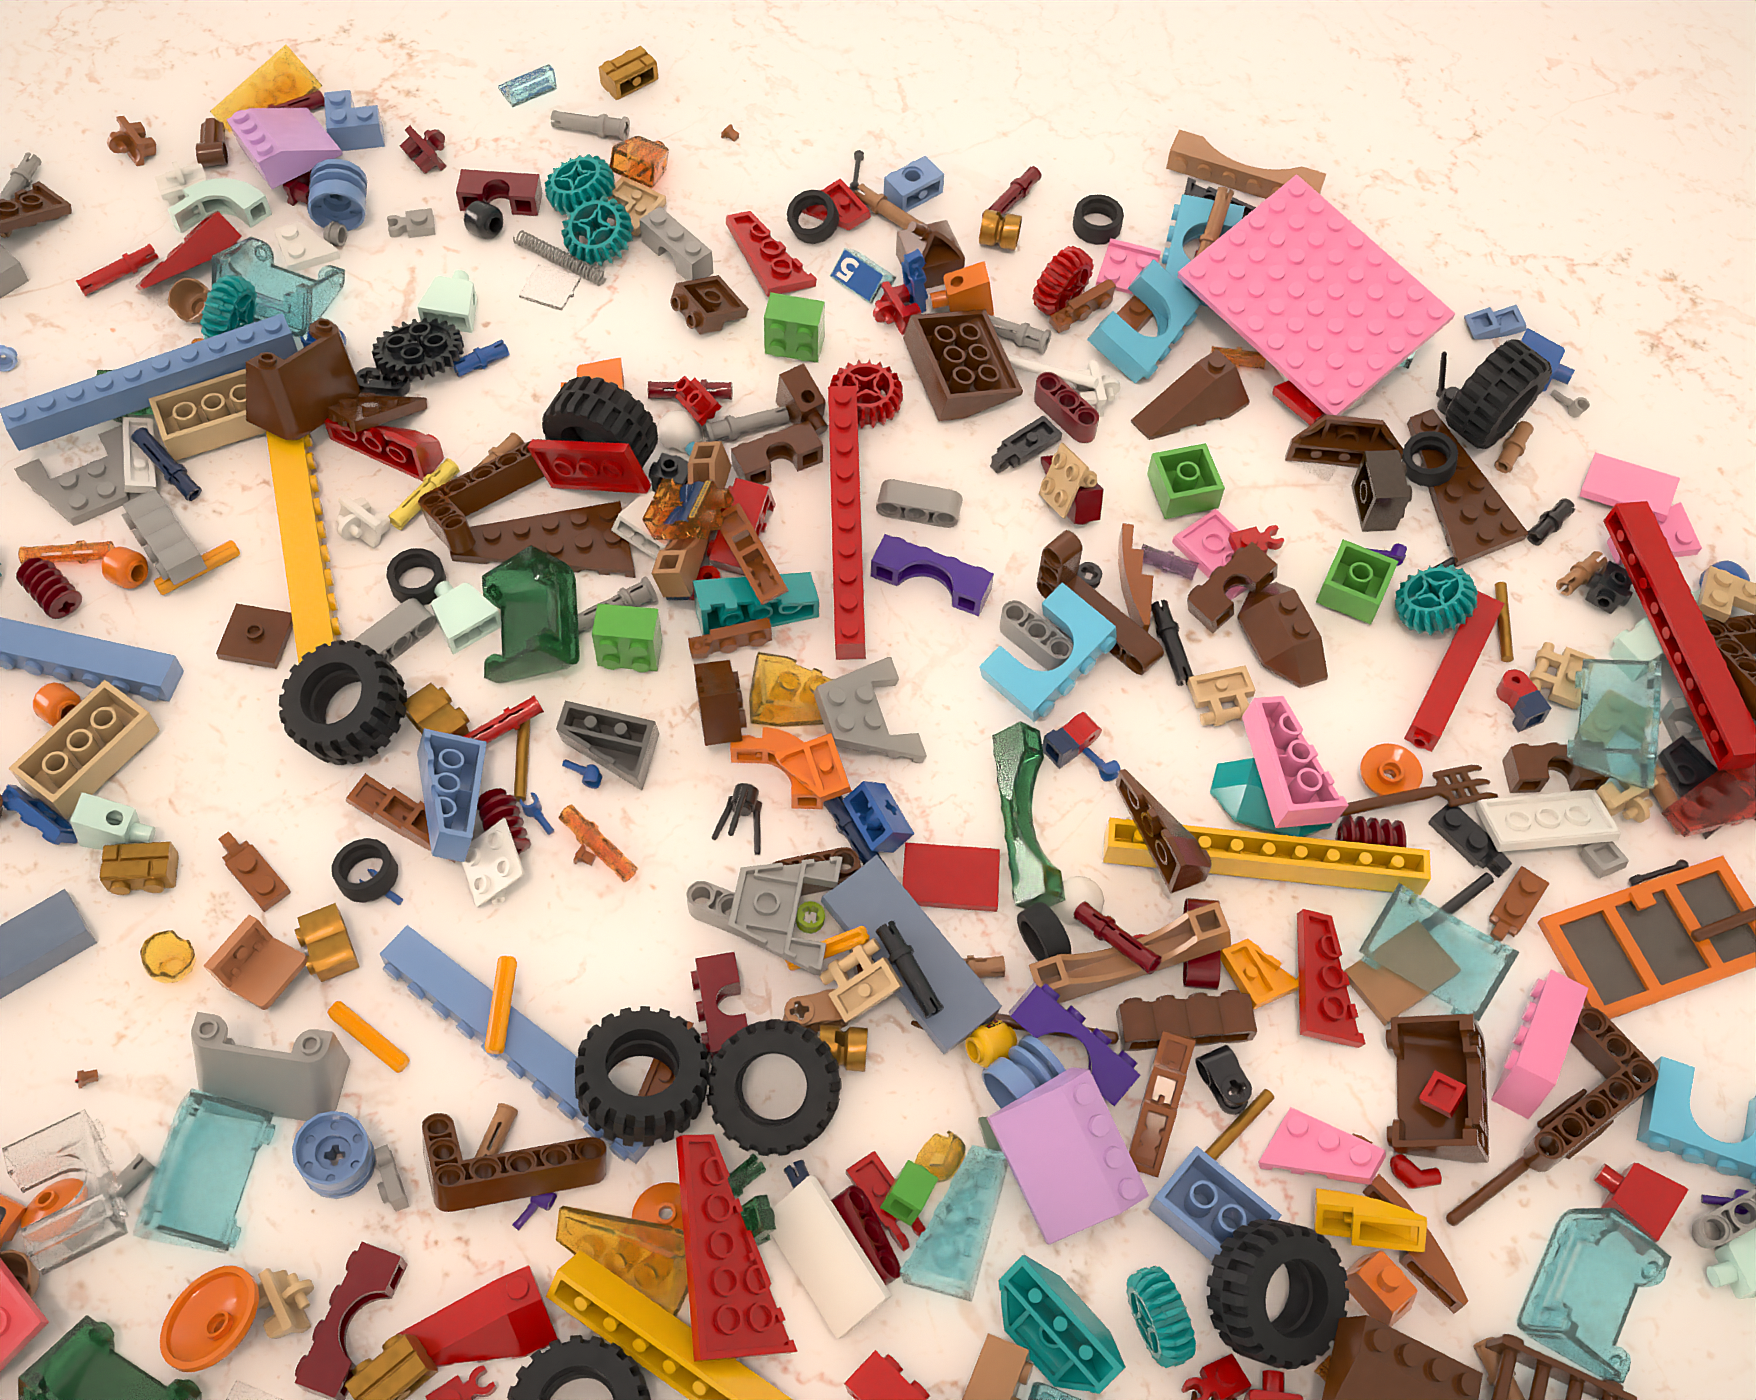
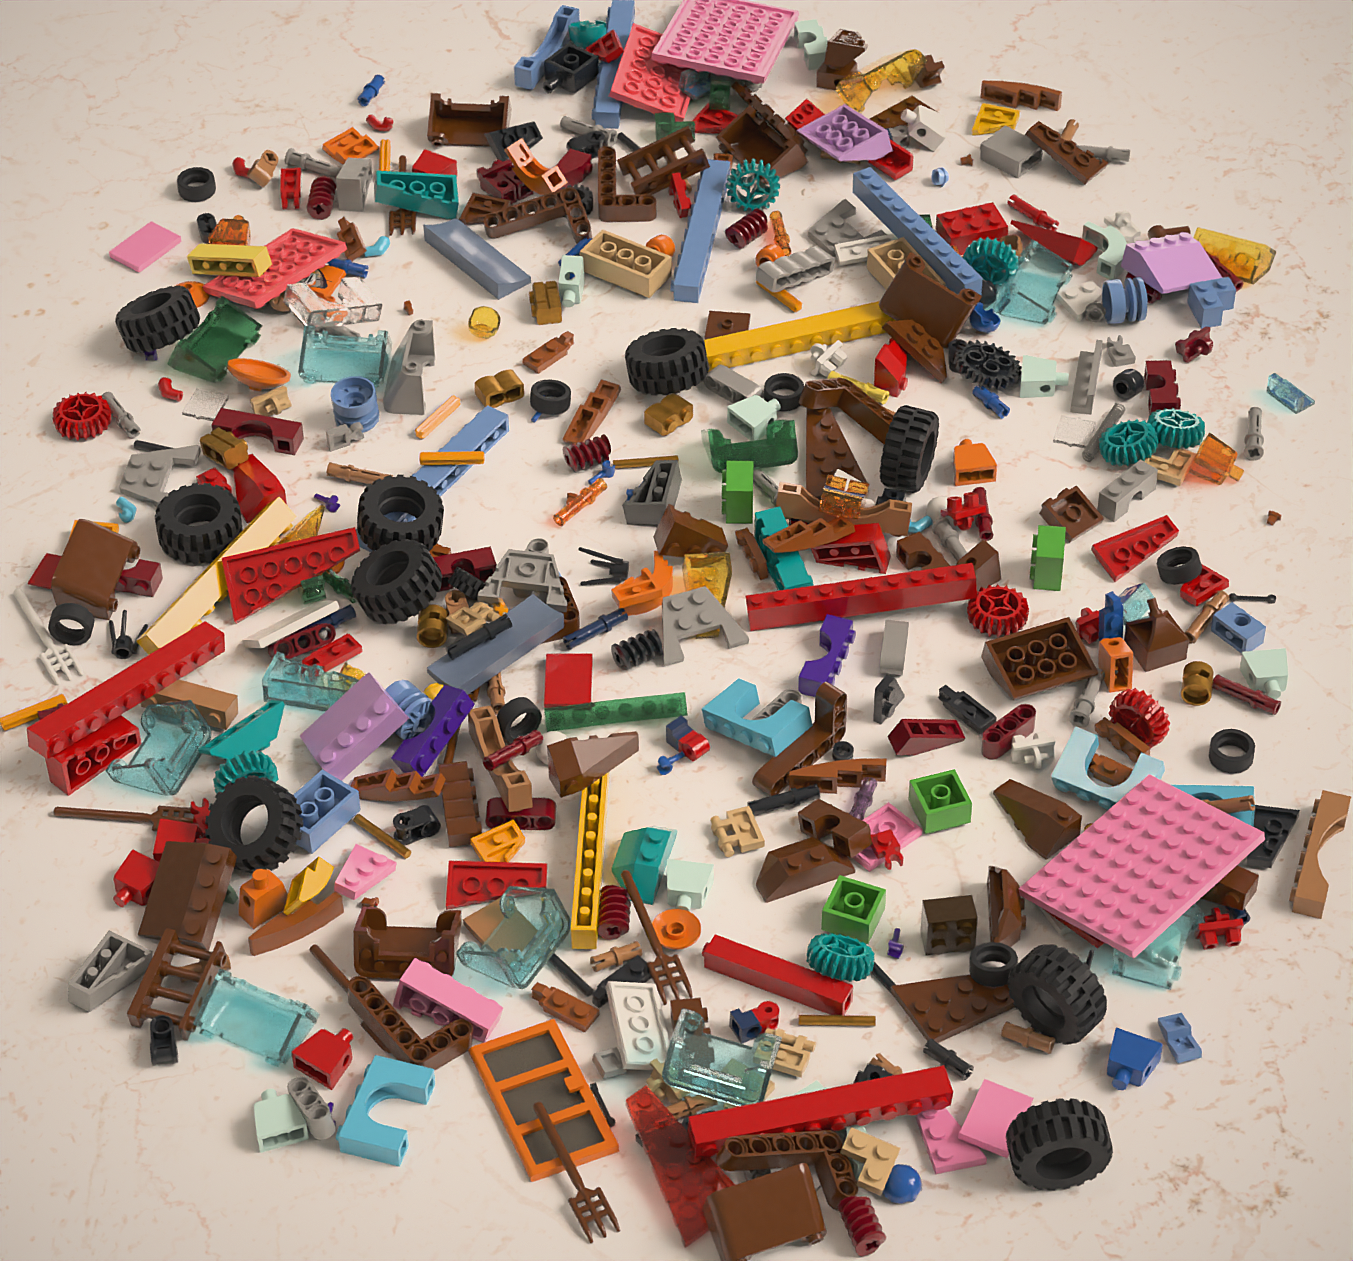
camera: 90 degrees right, 15 degrees down
(131, 140) = (1157, 194): dark orange hips -> none
(134, 327) = (970, 224): none -> red brick
(174, 472) = (852, 267): dark blue pin -> none
(255, 964) = (483, 356): nougat bracket -> none
(443, 258) = (1086, 380): none -> light grey fence
(450, 787) = (618, 419): medium blue wedge -> none
(492, 864) = (545, 452): white hinge -> none
(507, 721) = (669, 447): red pin -> none
(507, 1175) = (336, 456): reddish brown beam -> none
(589, 466) = (874, 452): red plate -> none
(628, 72) = (1319, 447): pearl gold brick -> none
(772, 990) = (466, 583): none -> black tyre
(878, 817) = (595, 633): blue brick -> none
(907, 784) = (636, 648): none -> black piece
(909, 1192) = (329, 654): bright green brick -> none
(983, 171) = (1266, 670): none -> light aqua torso
(1017, 513) = (886, 698): none -> black wing
(1064, 479) = (925, 719): tan hinge -> none
(1065, 375) = (1042, 715): white bar -> none
(1124, 262) = (1185, 771): bright pink piece -> none
(1288, 767) = (652, 831): bright pink wedge -> none
(1330, 748) = (688, 883): none -> light aqua torso
(1411, 1175) = (345, 932): red arm -> none
(1435, 842) = (615, 956): none -> medium nougat pin
(1443, 1094) = (404, 942): red plate -> none
(1576, 407) = (1092, 1088): light grey hand -> none
(1701, 418) = (1059, 1144): none -> black tyre

